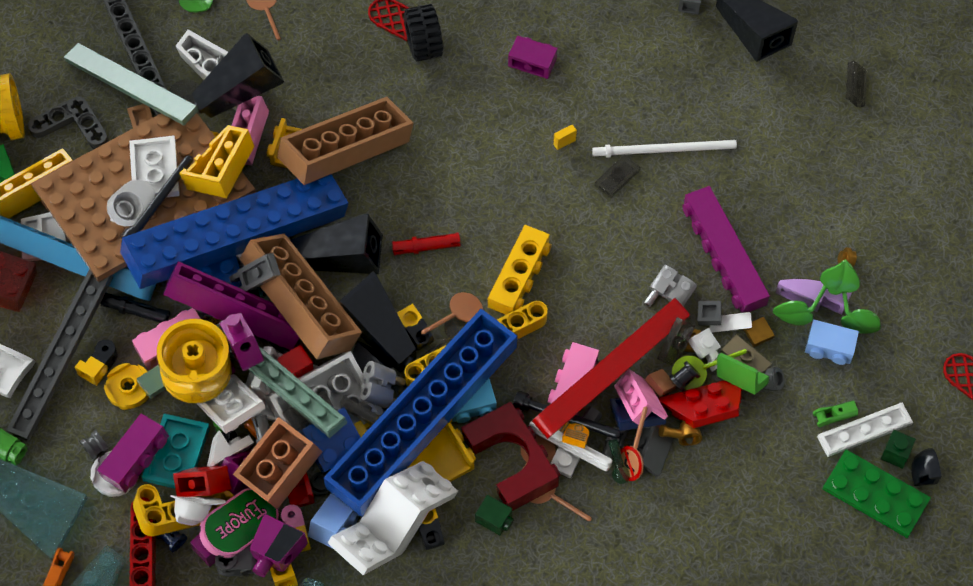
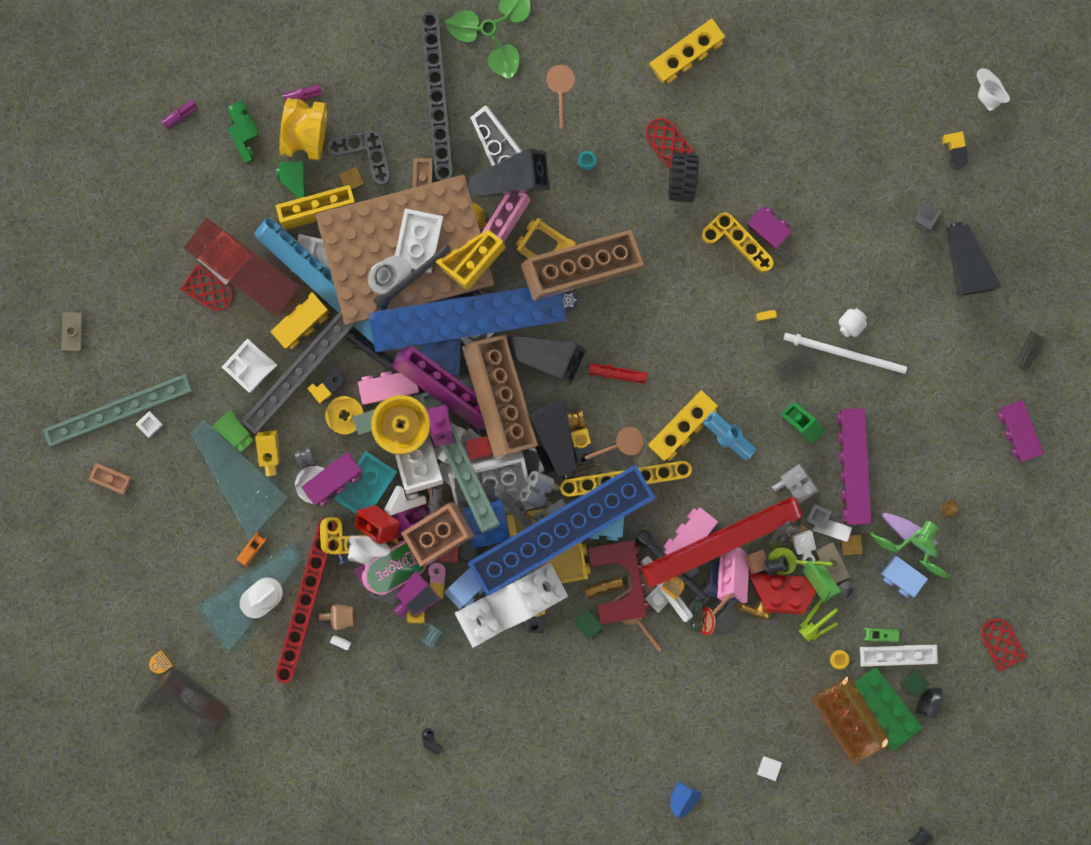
camera: 20 degrees right, 25 degrees up
(43, 442) = (268, 443): none -> yellow torso
(48, 302) = (300, 322): none -> yellow wedge
(70, 148) = (352, 177): none -> pearl gold tile
(131, 84) = (422, 140): tile -> none
(257, 272) = (469, 372): dark grey hinge -> none
(316, 57) = (587, 160): none -> teal plate
(348, 190) = (570, 300): none -> dark blue tile
(399, 300) = (576, 419): none -> pearl gold wheel
(497, 469) = (604, 587): none -> pearl gold pin
(535, 87) = (740, 245): none -> yellow beam
(575, 260) = (729, 436): none -> dark azure piece
(651, 225) = (803, 422): none -> green slope
(659, 114) = (852, 322): none -> white head
(752, 435) = (810, 630): none -> lime plant
(801, 456) = (839, 659): none -> yellow plate
(828, 513) = (846, 730): none -> clear orange brick
(884, 159) = (1020, 431): none -> magenta brick

